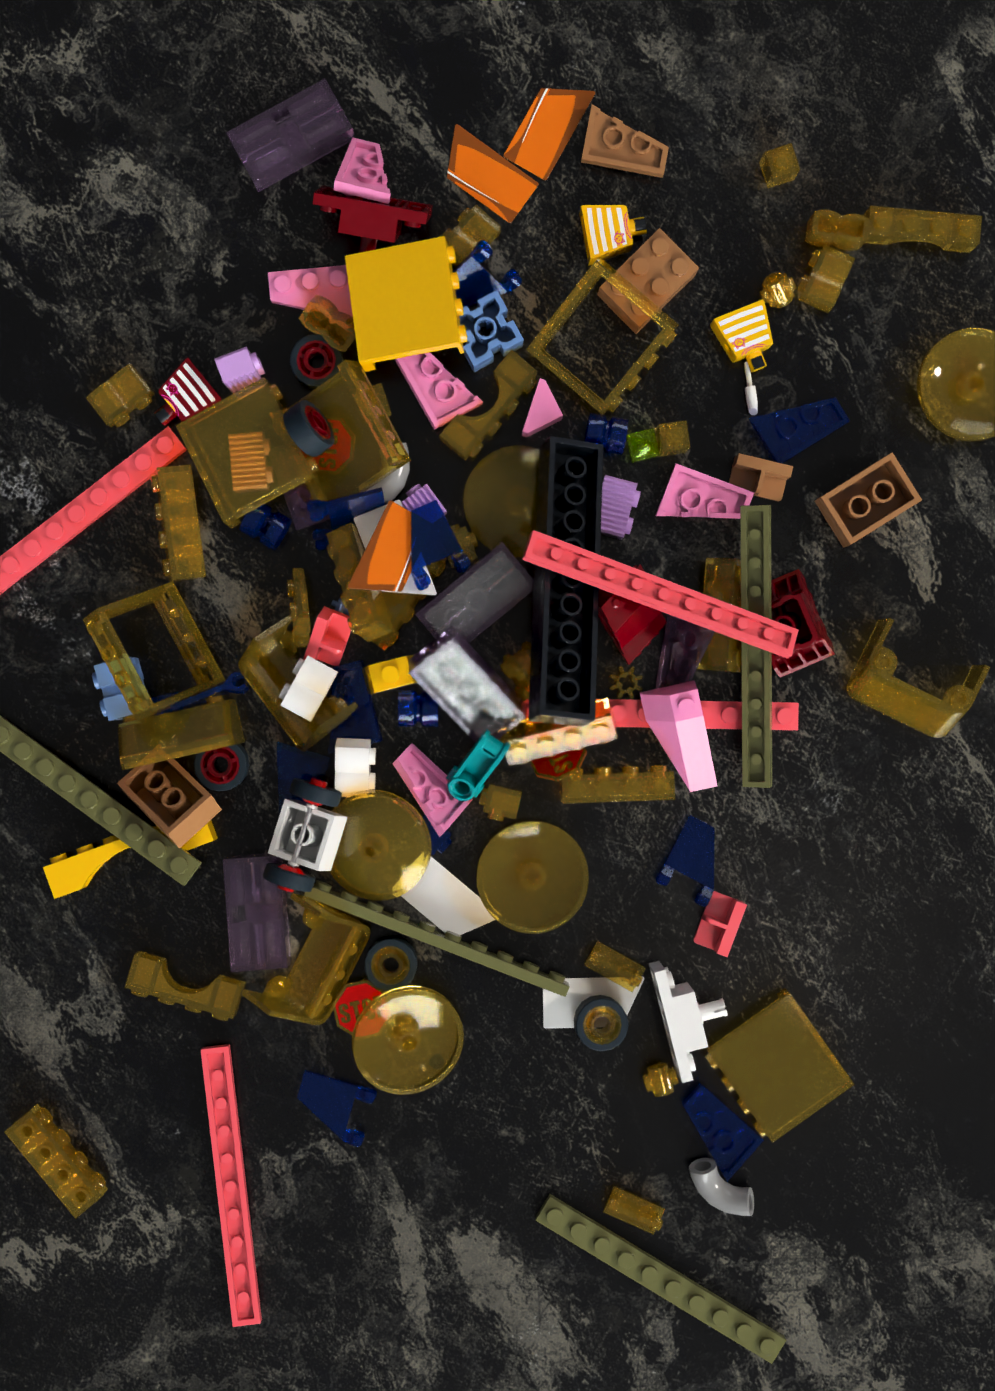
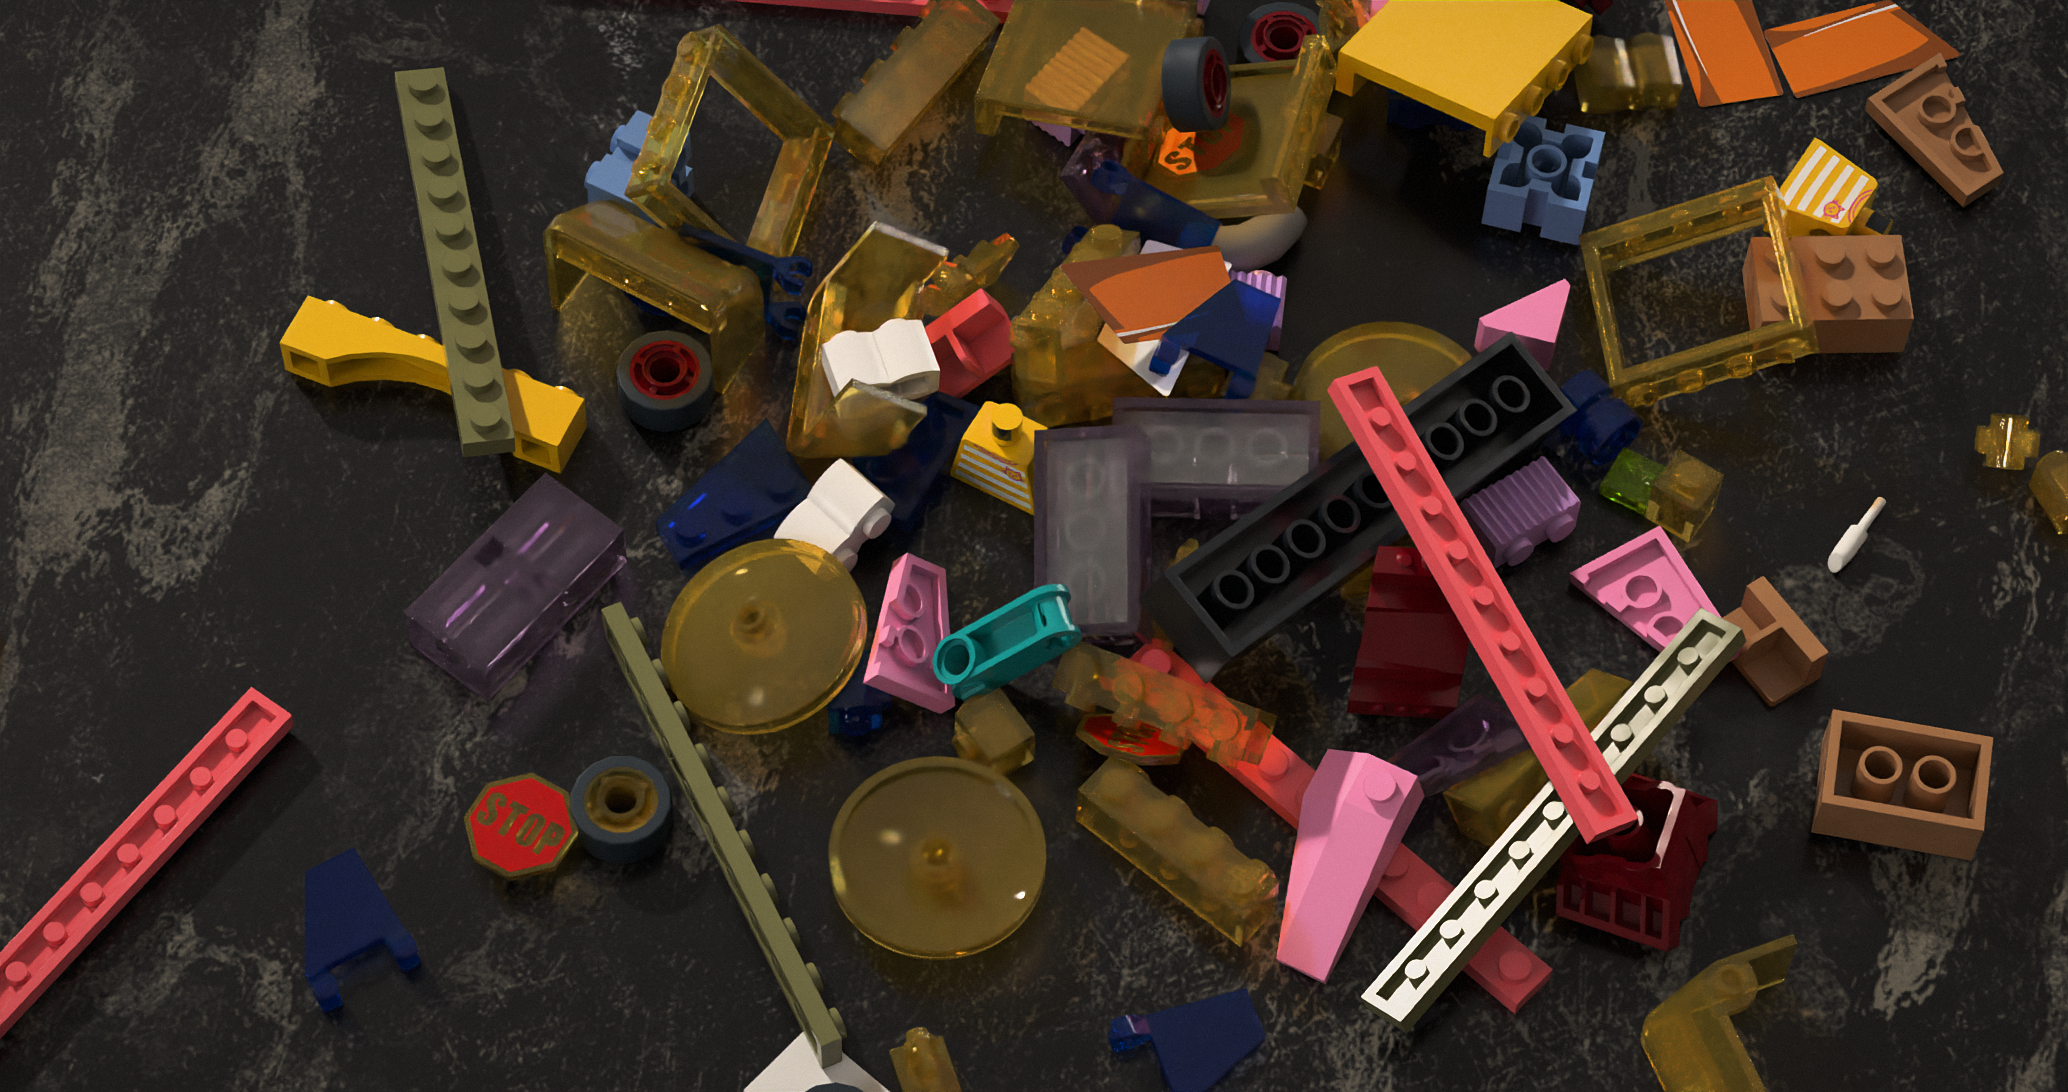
camera: 40 degrees right, 30 degrees down
(151, 976) = (349, 643): clear yellow arch -> none
(170, 799) = (562, 340): medium nougat brick -> none
(256, 521) = (1023, 165): clear blue wheel -> none
(305, 835) = (690, 522): brick -> none
(319, 969) = (537, 732): clear yellow windscreen -> none
(407, 1040) = (540, 913): clear yellow dish -> none
(417, 708) = (997, 526): clear blue wheel -> none
(436, 389) = (1410, 196): bright pink wing -> none
(447, 901) = (783, 800): white sticker -> none
(466, 433) = (1405, 277): clear yellow arch -> none
(477, 281) = (1590, 105): clear blue flag -> none
(633, 679) = (1321, 730): clear yellow gear -> none
(745, 334) = (1910, 457): yellow torso -> none
(795, 429) = (1881, 632): clear blue wing -> none

